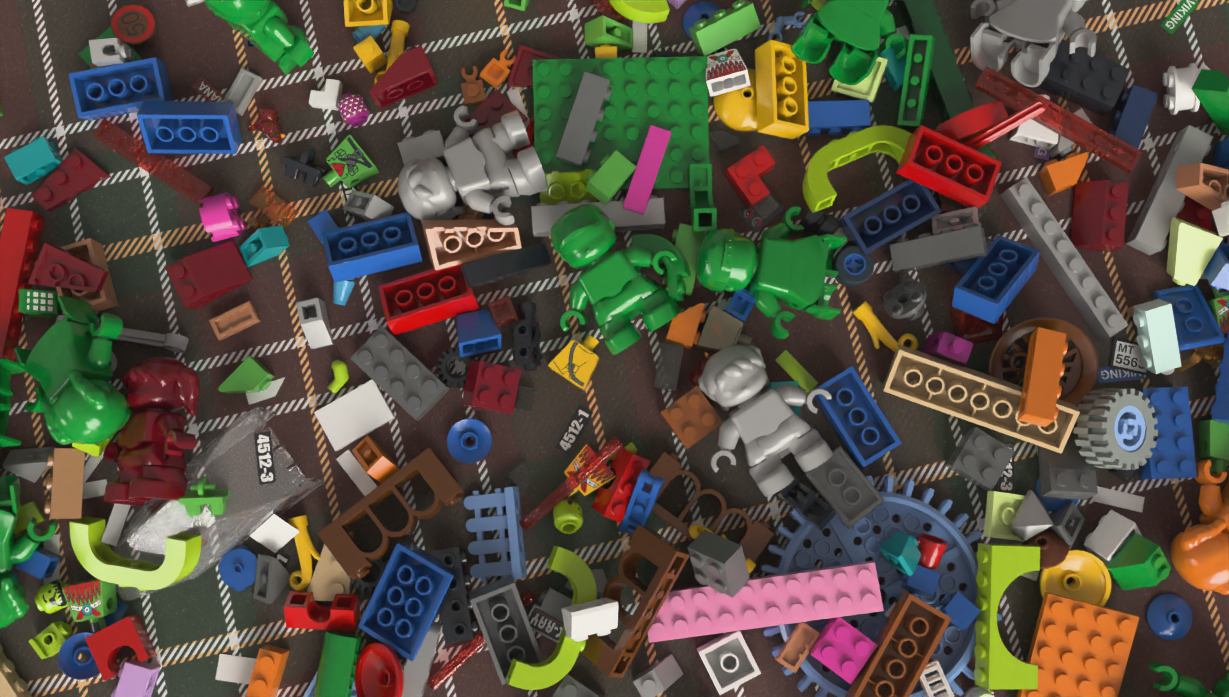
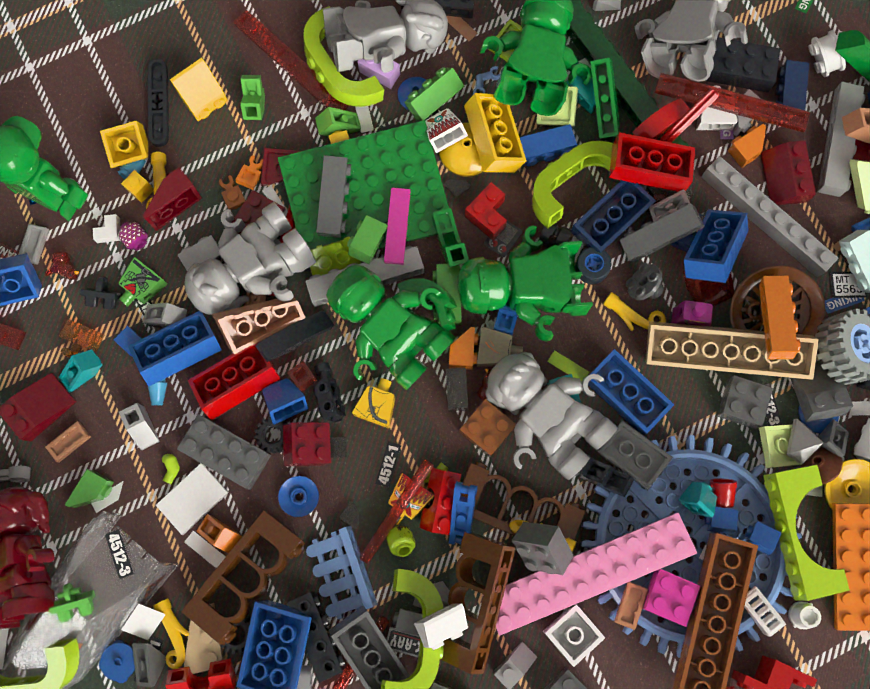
camera: 10 degrees left, 5 degrees down
(222, 216) = (37, 353): dark pink brick -> none

